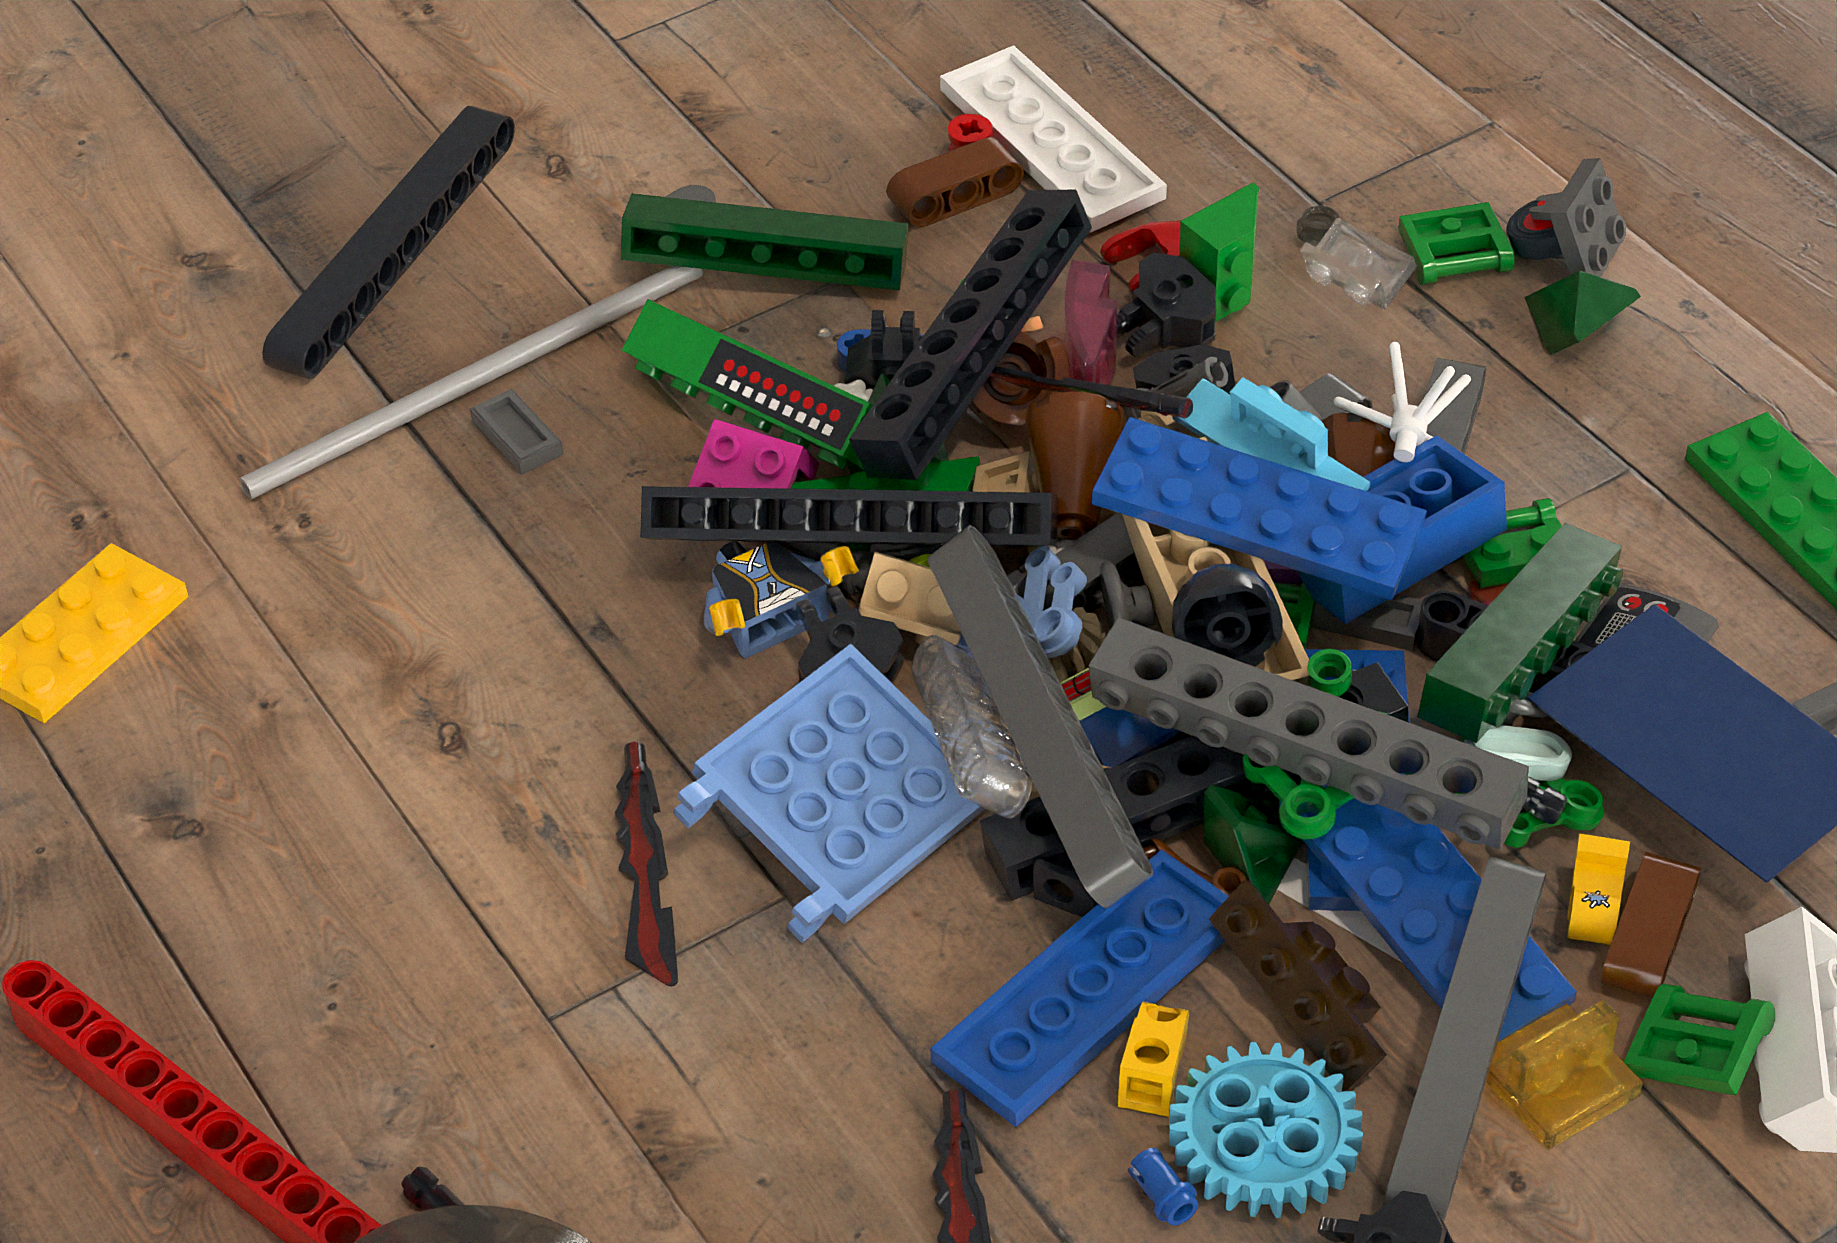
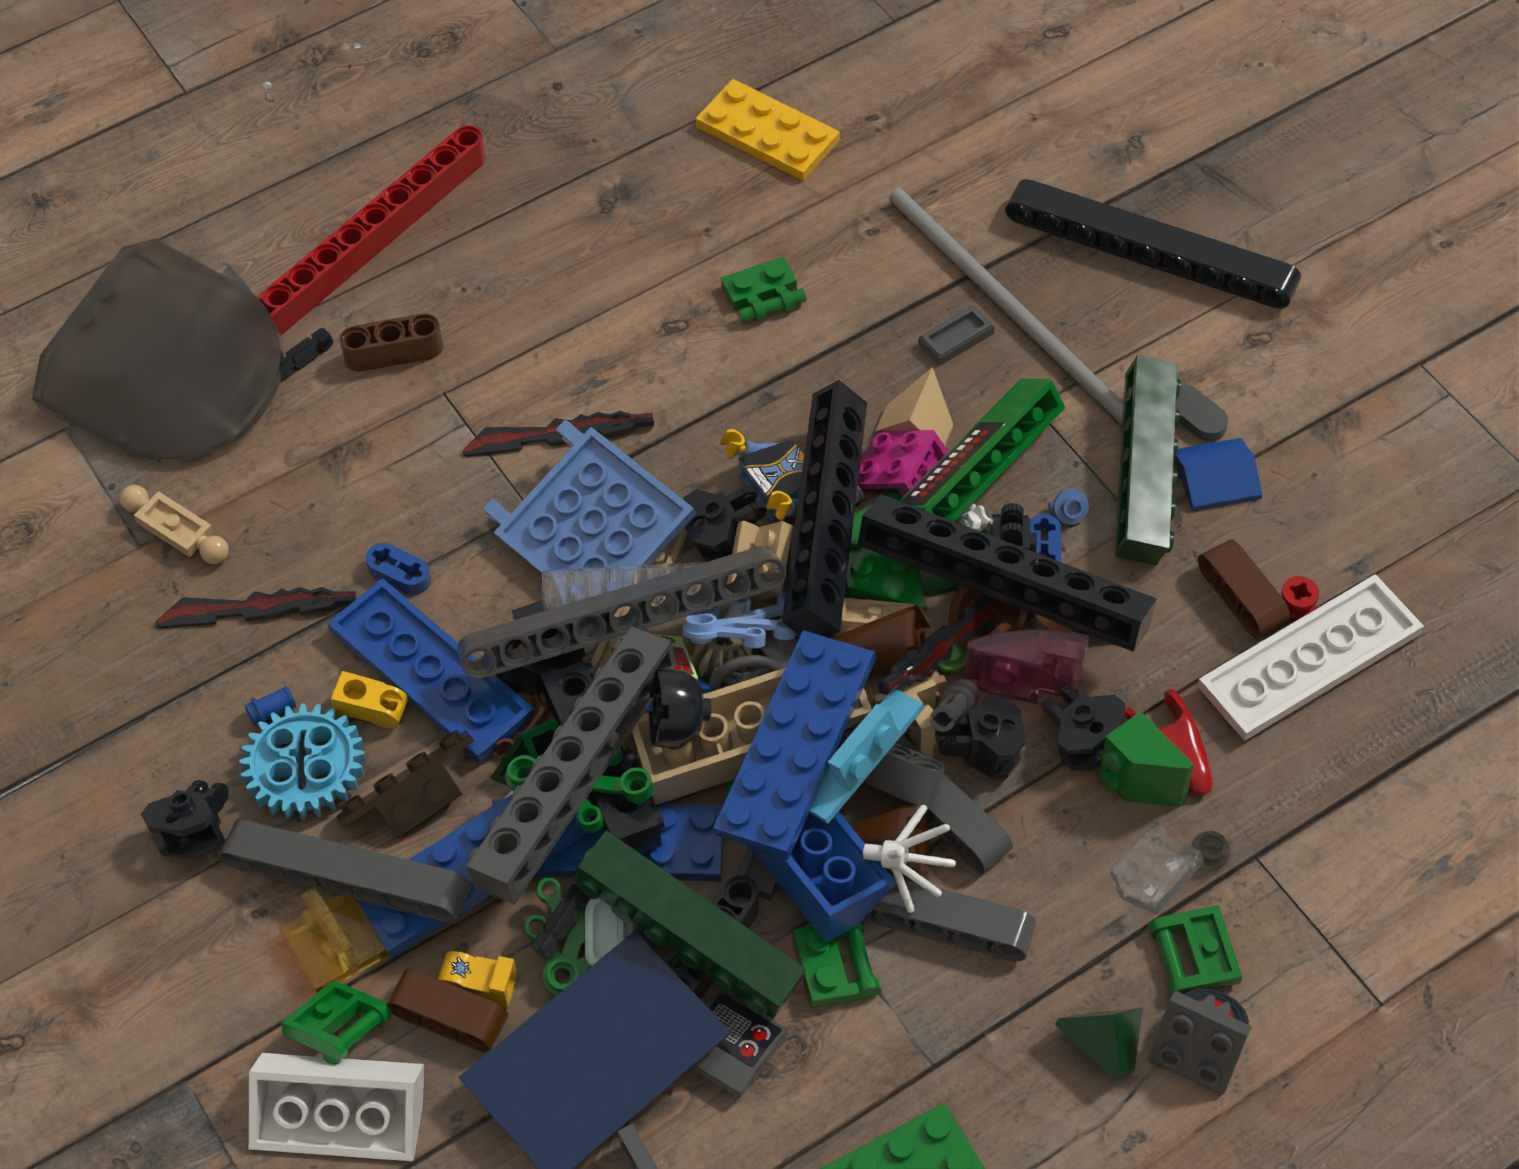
camera: 90 degrees right, 10 degrees up
(389, 633) = (759, 284): none -> green plate
(450, 1077) = (391, 342): none -> reddish brown beam
(653, 458) = (918, 408): none -> tan slope
(770, 185) = (1218, 474): none -> blue slope
(820, 326) = (1069, 506): none -> medium blue plate
(891, 1038) = (400, 565): none -> blue beam

